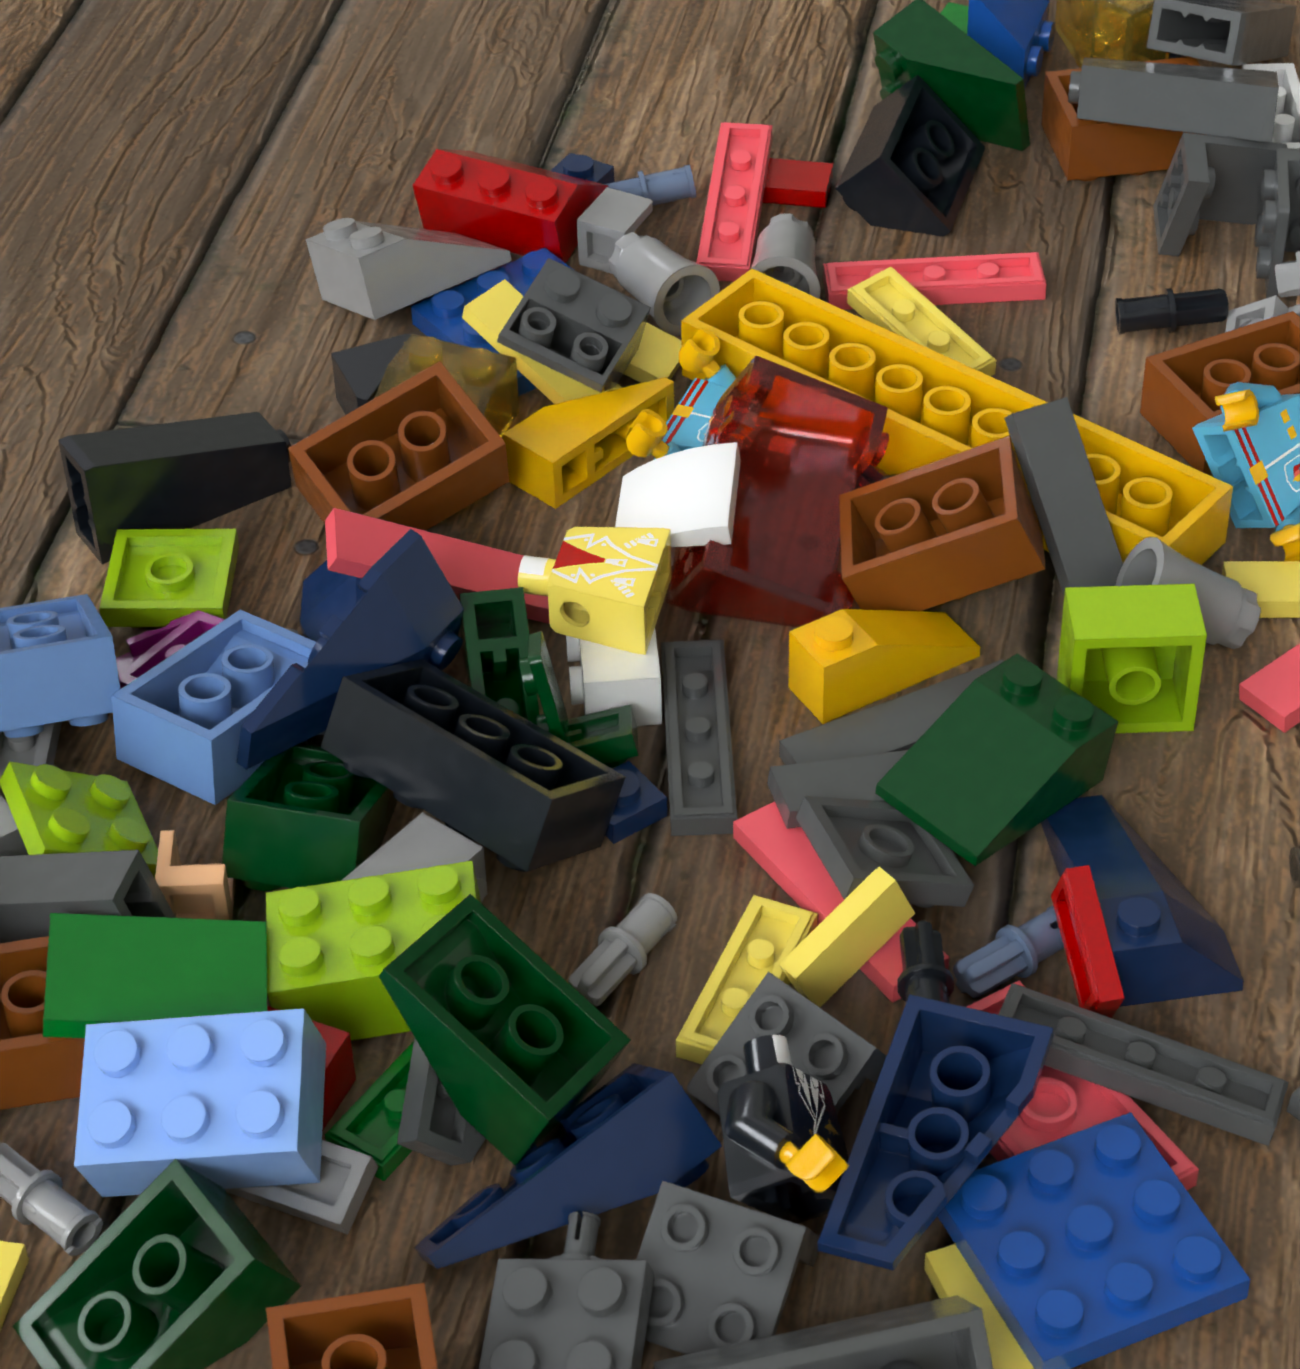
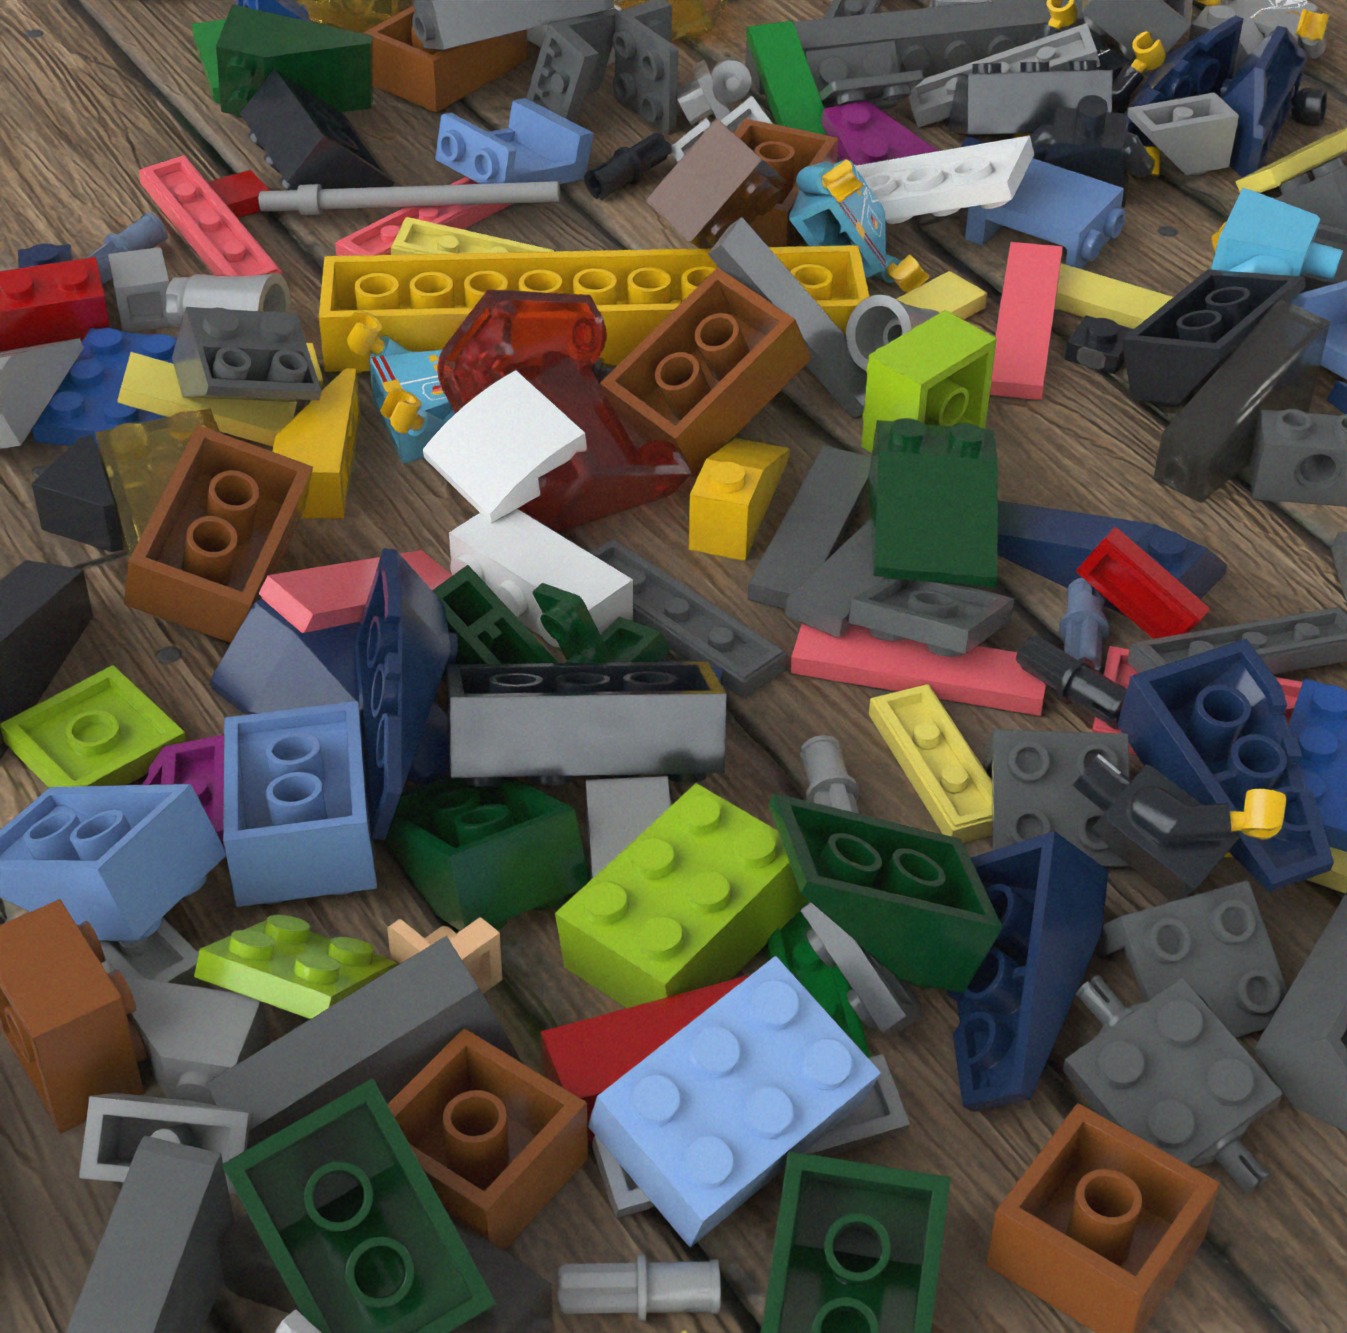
camera: 45 degrees left, 0 degrees up
(150, 969) = (567, 1032): green tile -> none
(604, 584) = (526, 530): light yellow torso -> none
(788, 253) = (302, 243): light grey plant -> none
(847, 937) = (993, 674): light yellow tile -> none
(851, 216) = (313, 199): none -> light grey bar
(1068, 253) = (532, 148): none -> medium blue panel
(1135, 366) = (716, 187): none -> brick

